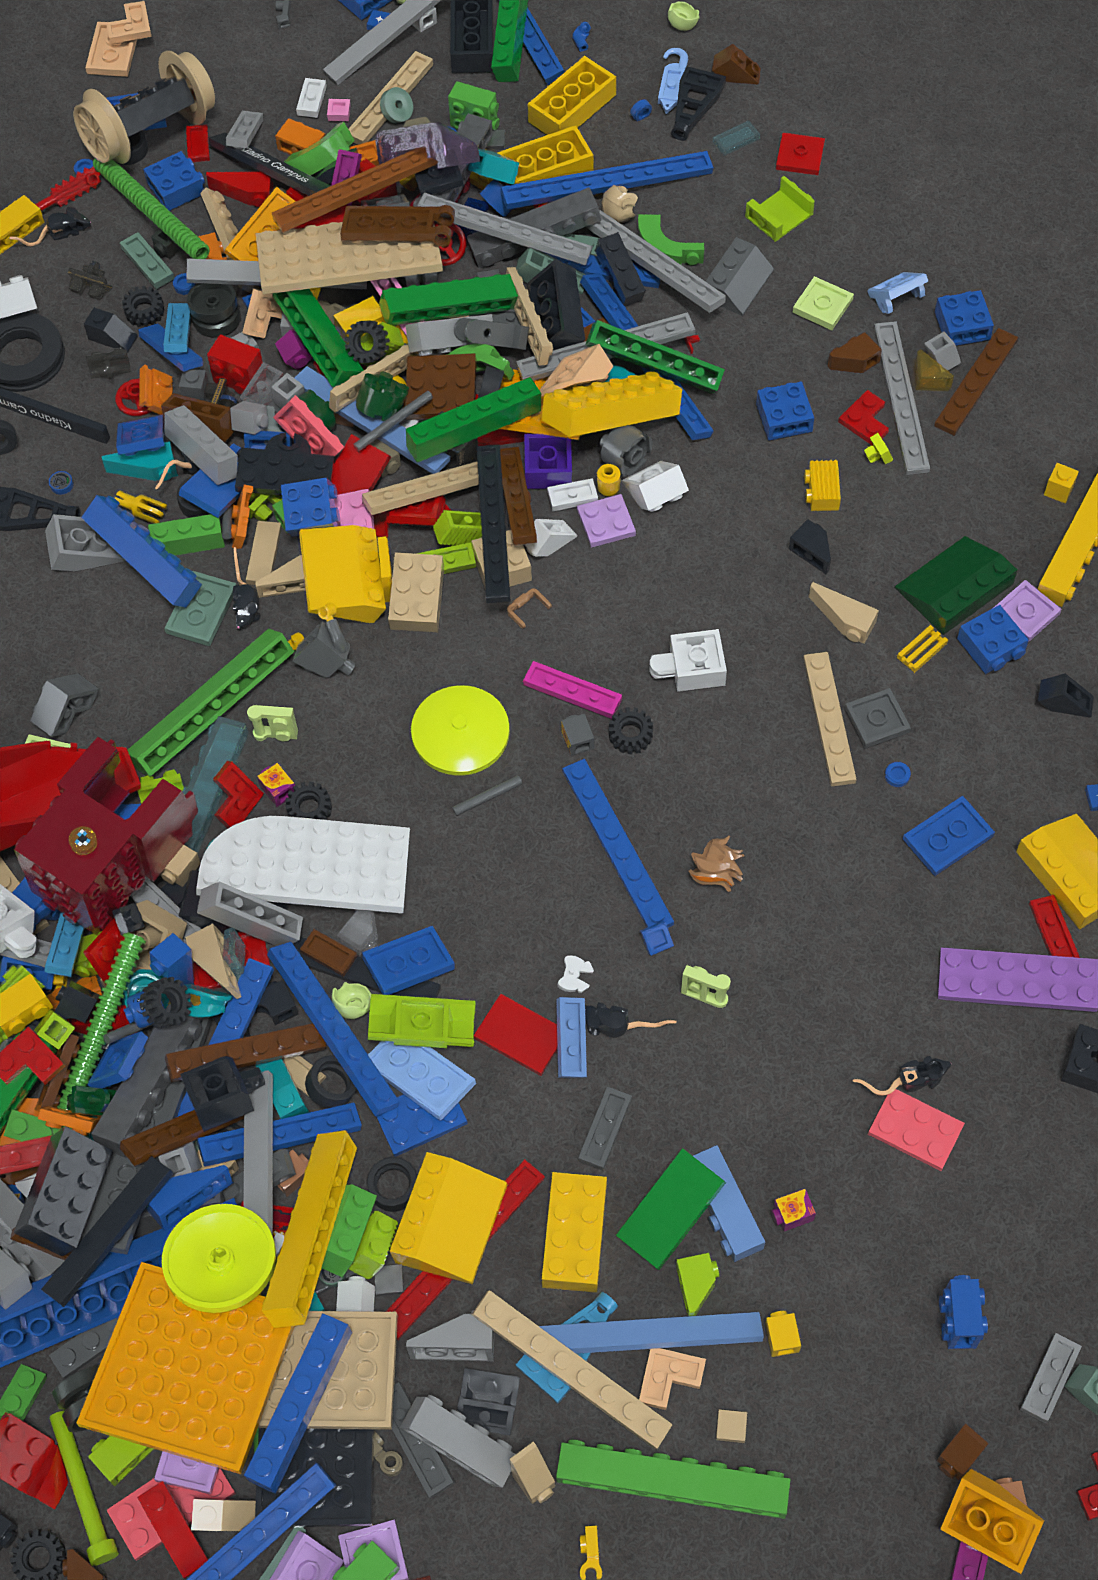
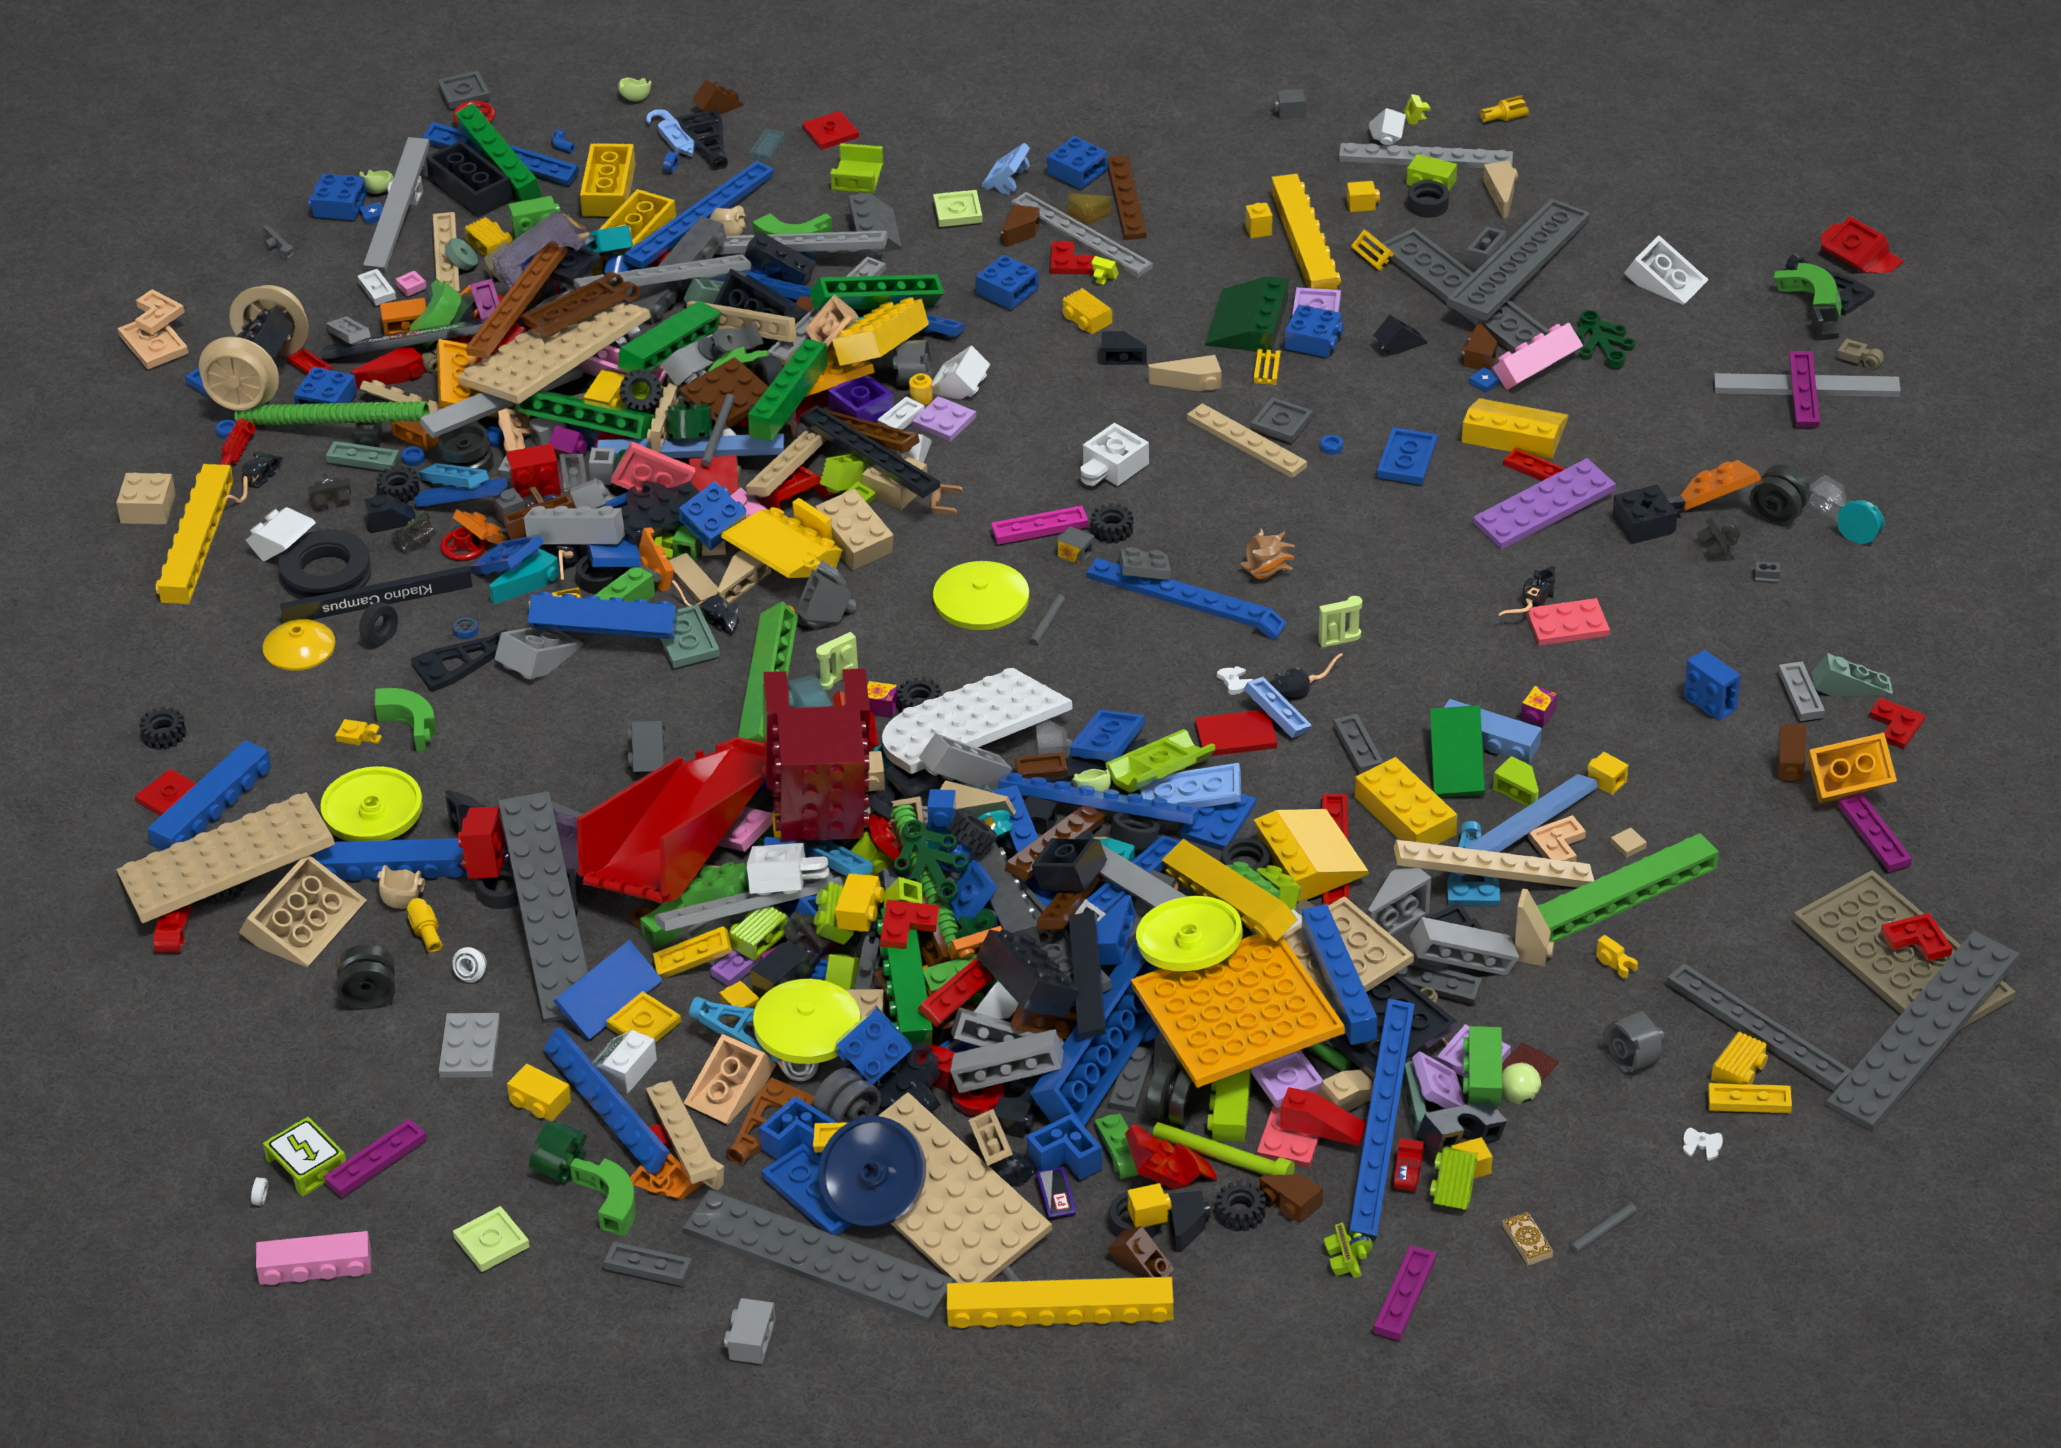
camera: 40 degrees left, 20 degrees down
(83, 840) = (829, 730): clear yellow tile -> none
(105, 1005) = (929, 857): none -> dark green plant
(434, 100) = (486, 236): none -> yellow brick
(610, 797) = (1144, 564): none -> dark grey plate
(943, 351) = (1086, 183): light grey brick -> none

